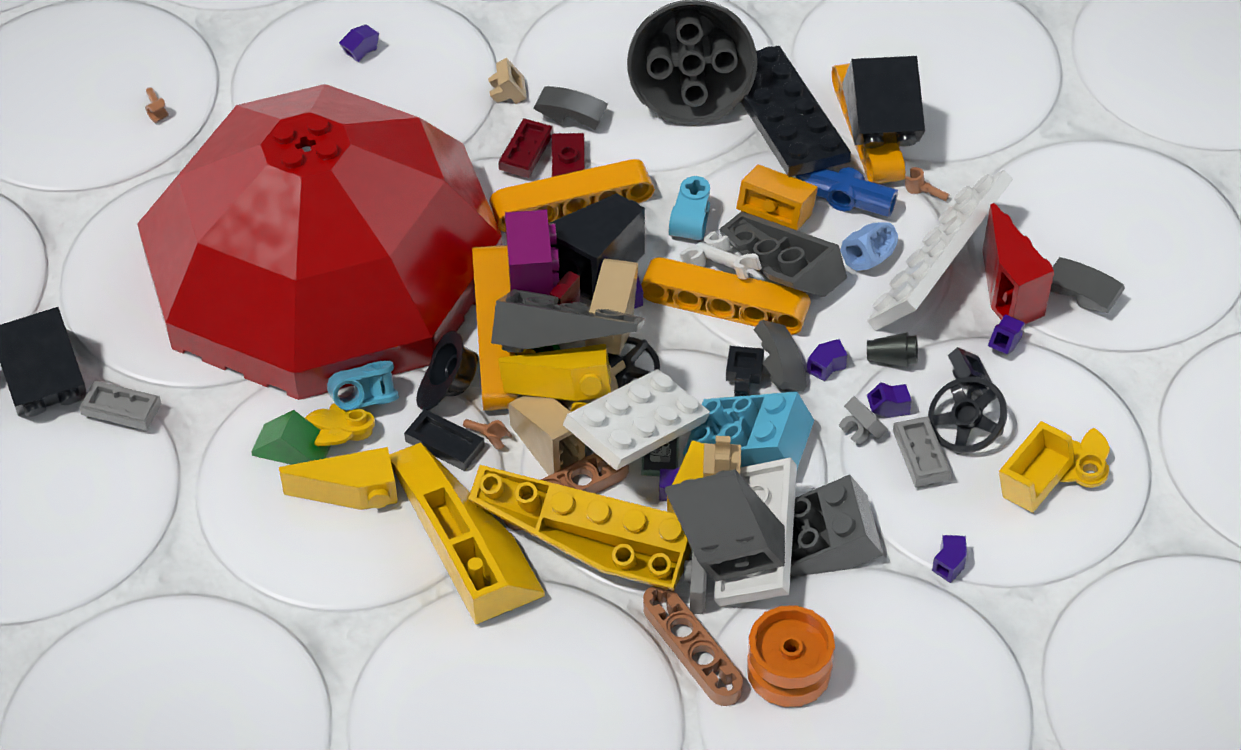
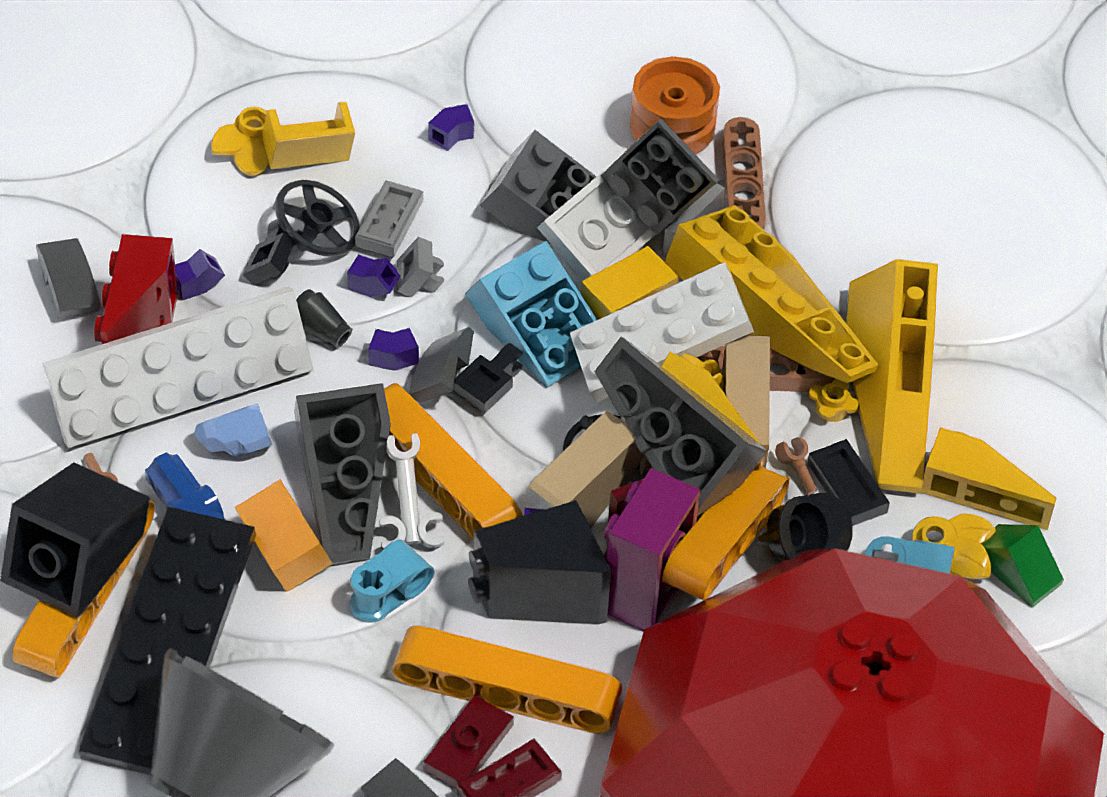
camera: 150 degrees left, 0 degrees up
(721, 456) = (606, 266): tan tile -> none

